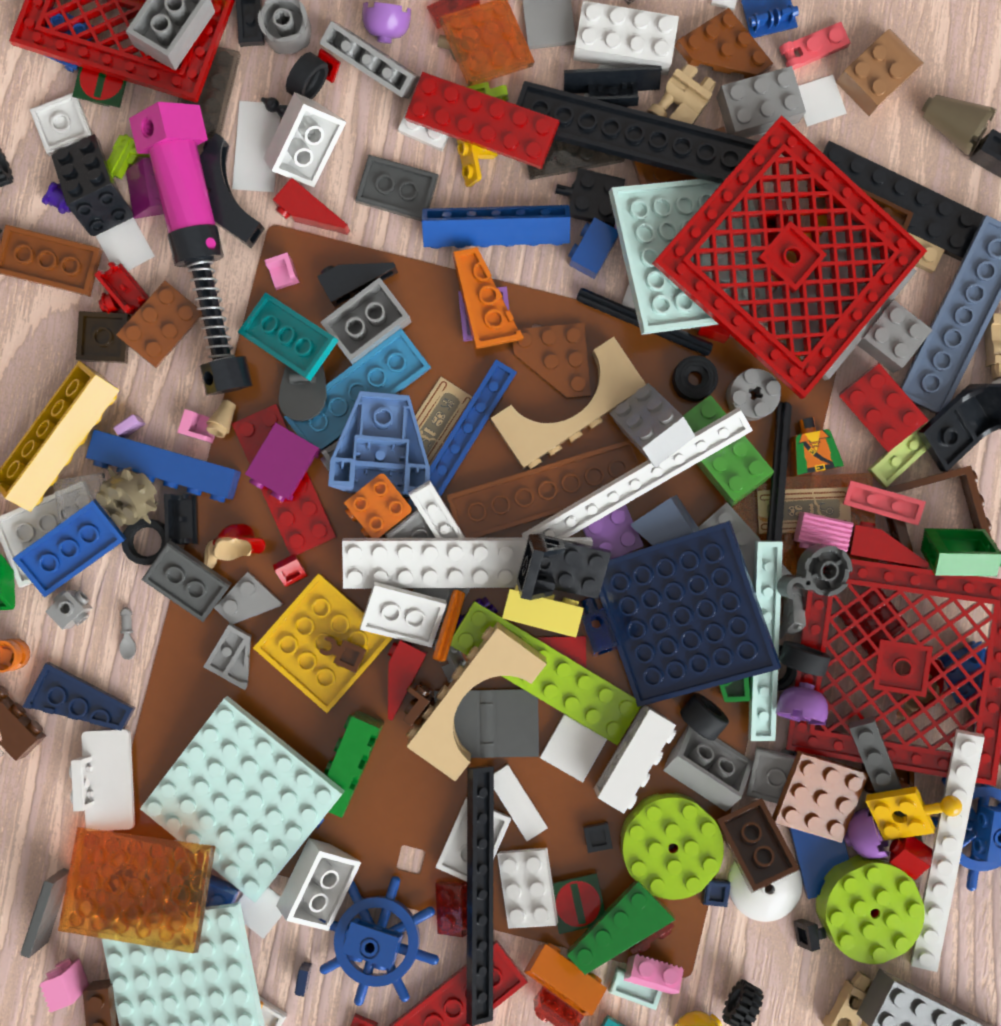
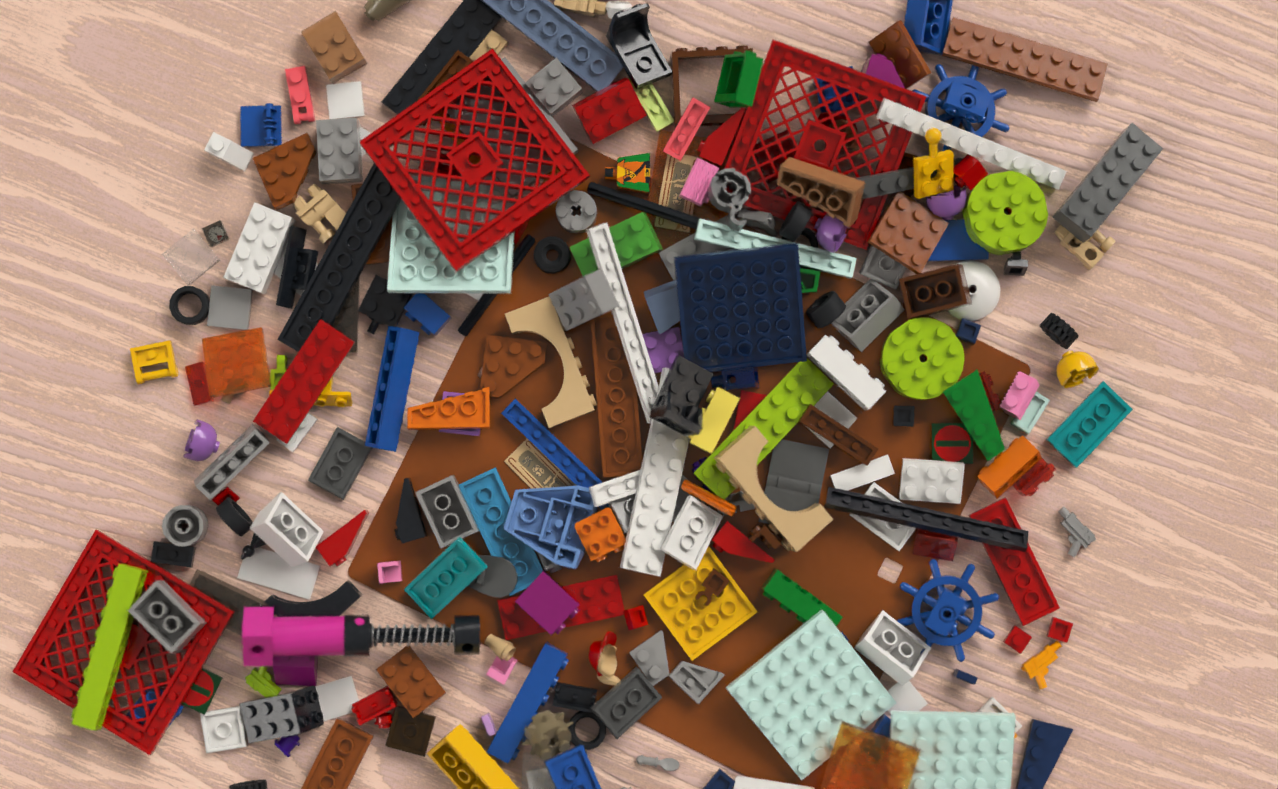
camera: 75 degrees left, 0 degrees up
(558, 764) = (838, 434): none -> reddish brown plate
(854, 685) = (823, 188): none -> medium nougat wedge

